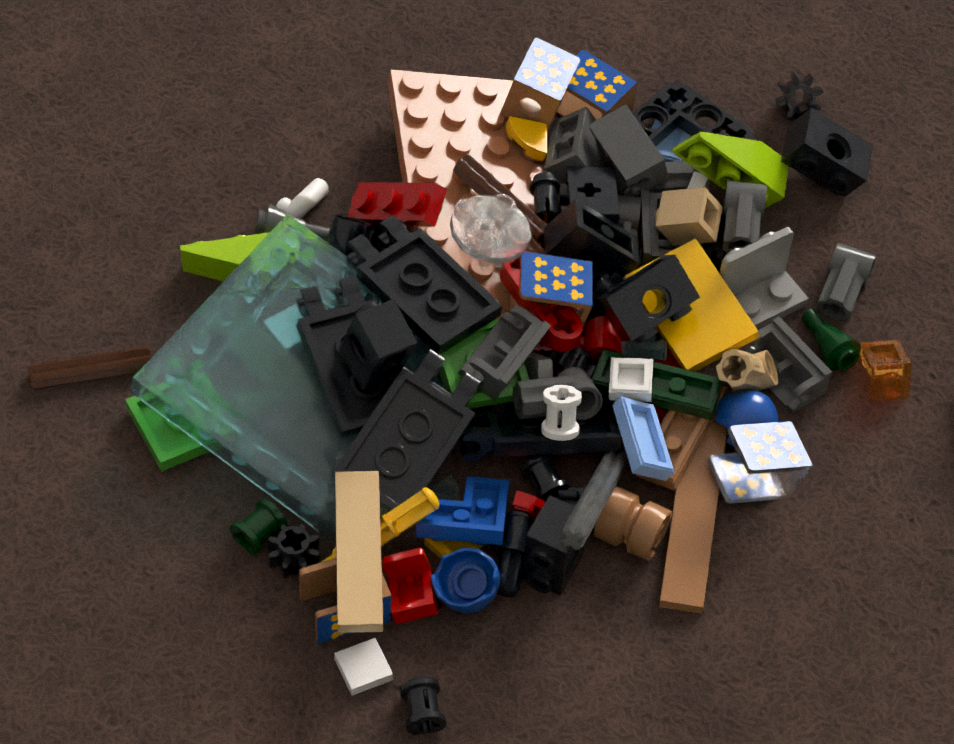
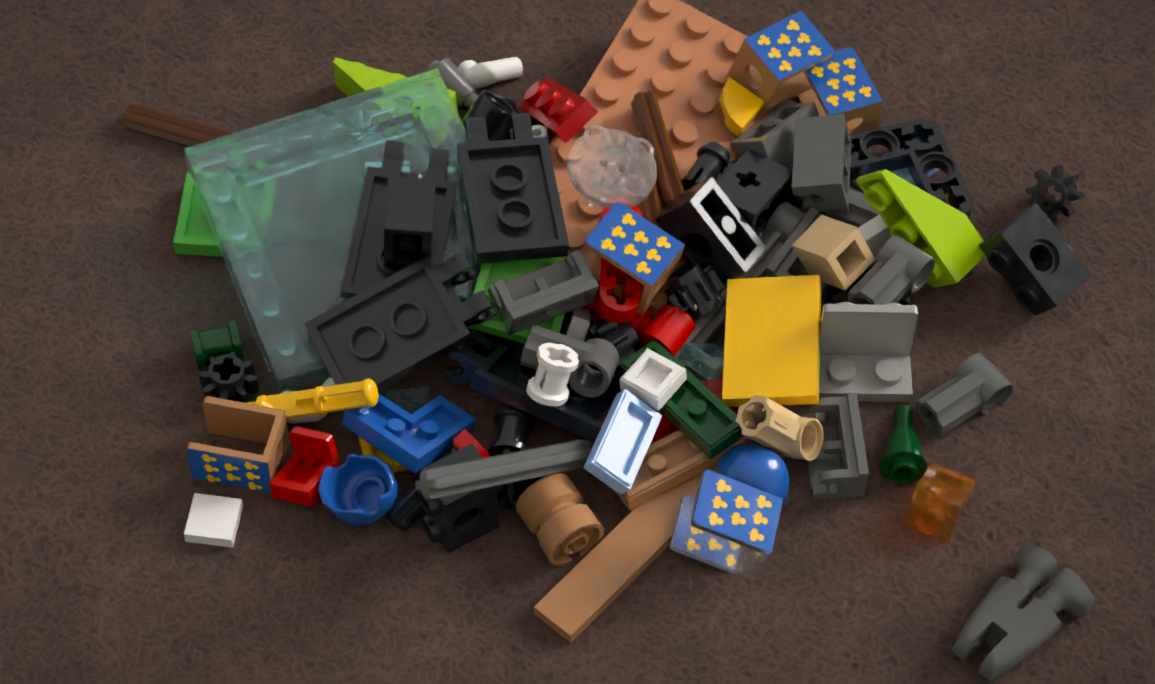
camera: 35 degrees right, 0 degrees up
(358, 552) = (264, 407): tan tile -> none
(422, 705) = (228, 598): black bush -> none
(624, 301) = (691, 309): black brick -> none

